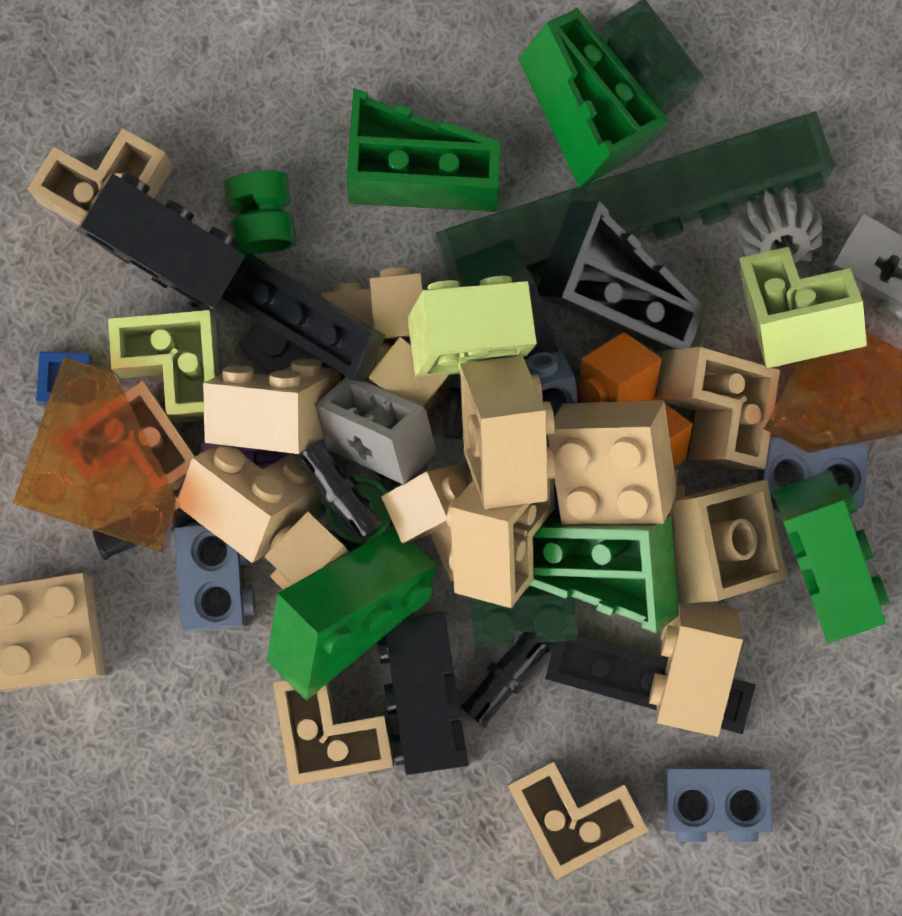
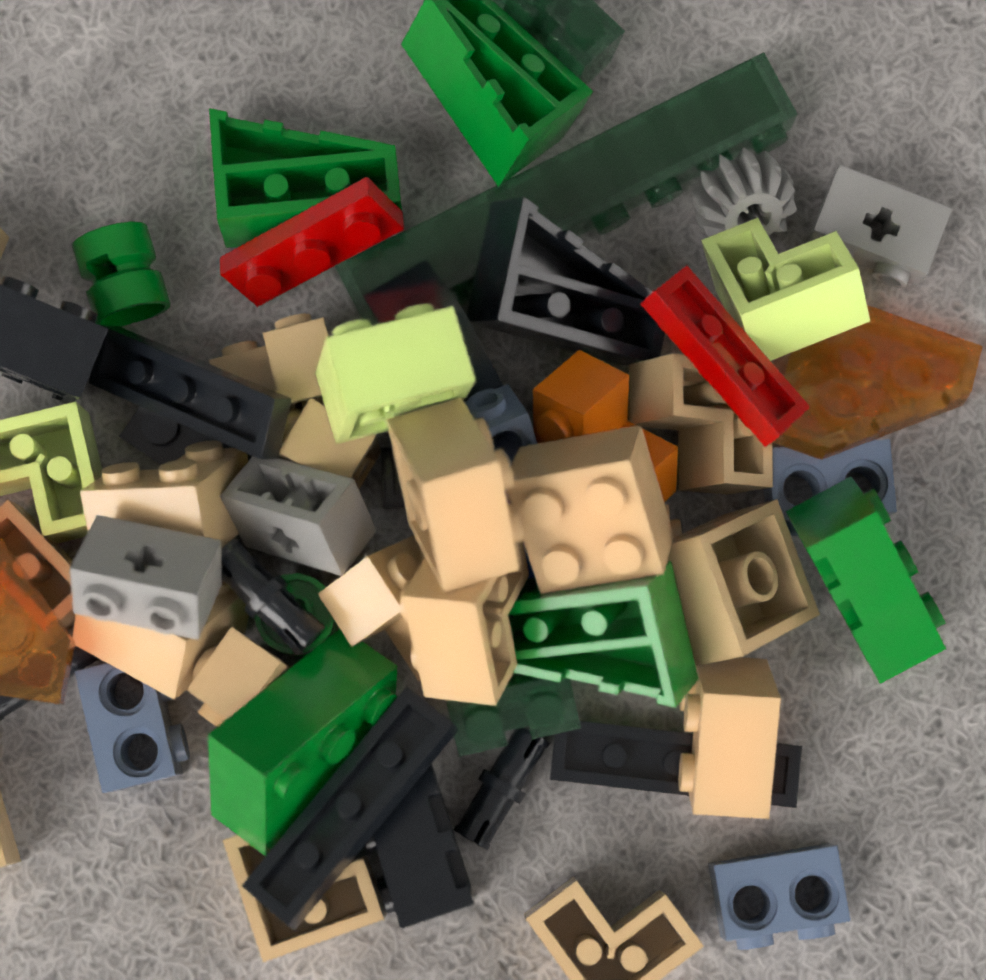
camera: 15 degrees left, 0 degrees up
(247, 459) = (146, 577): none -> light grey brick
(380, 672) = (350, 808): none -> black plate
(420, 210) = (312, 242): none -> red plate
(742, 355) = (725, 356): none -> red plate

